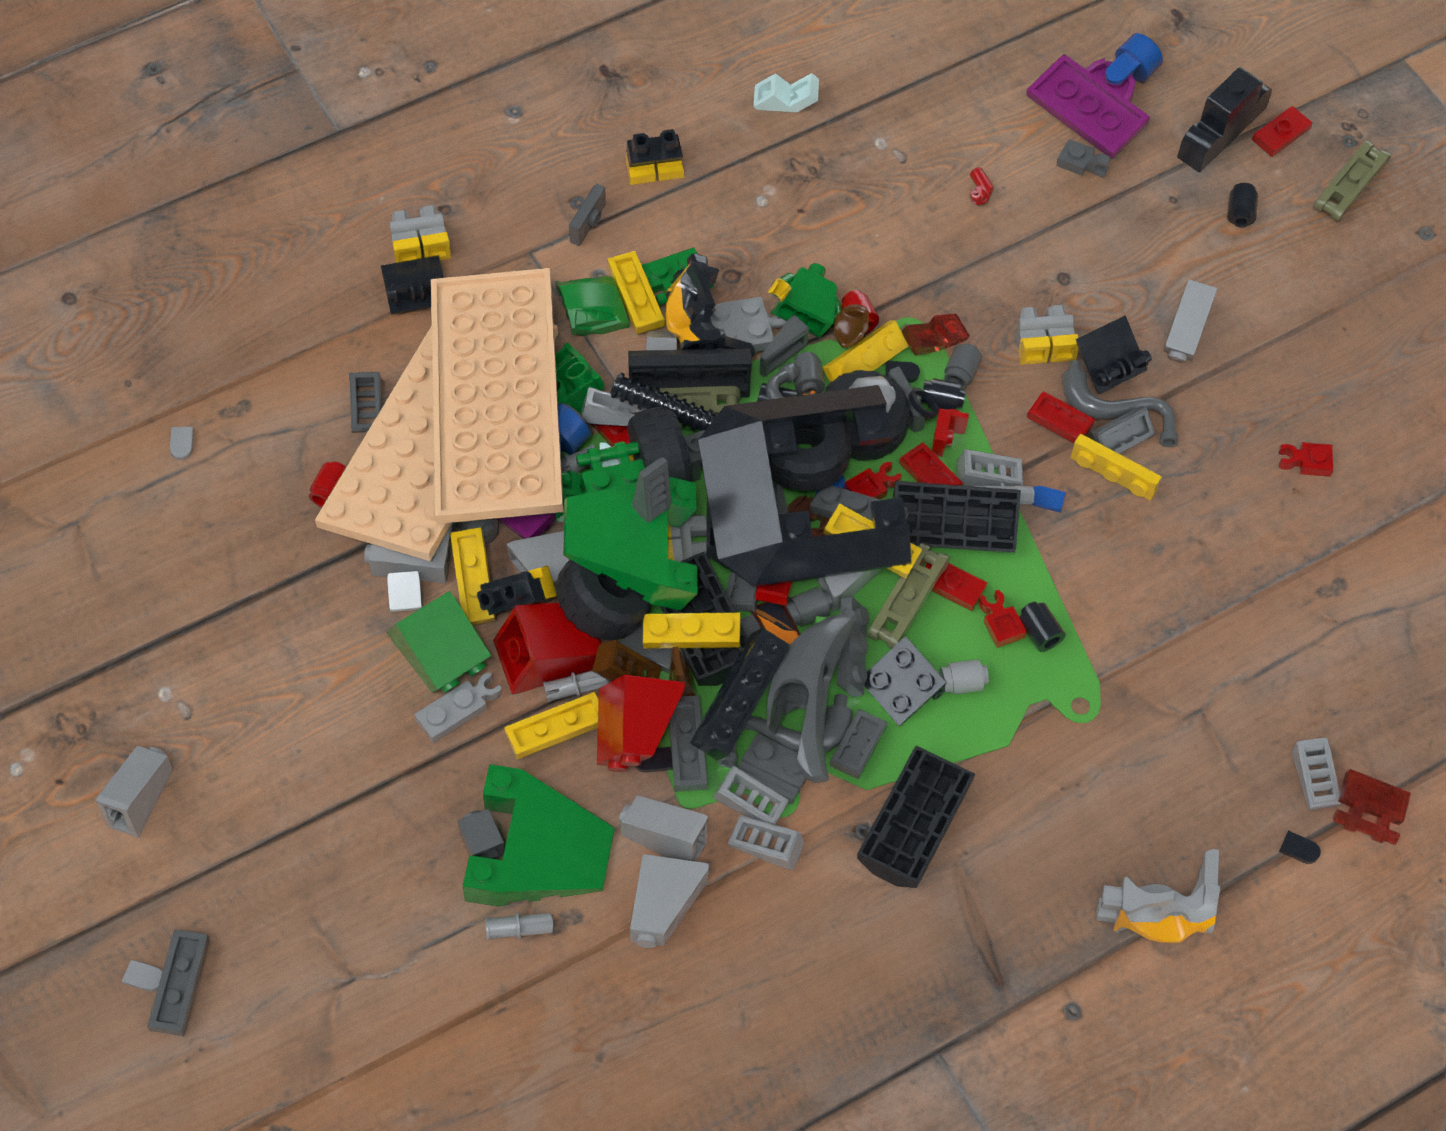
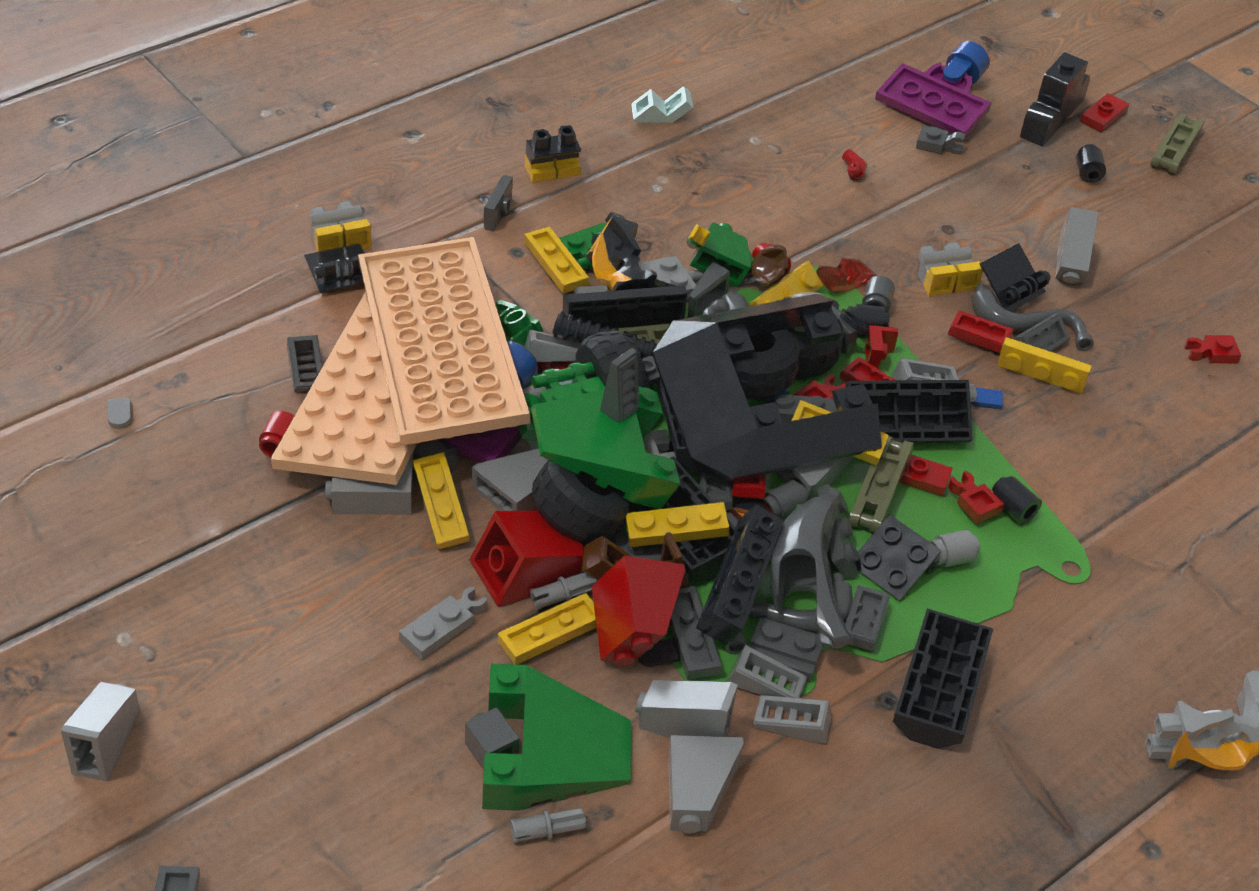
camera: 10 degrees left, 15 degrees down
(404, 591) = (370, 521): white slope -> none
(440, 643) = (416, 560): green slope -> none
(516, 590) = (478, 506): black hips -> none
(592, 305) = (516, 273): green slope -> none

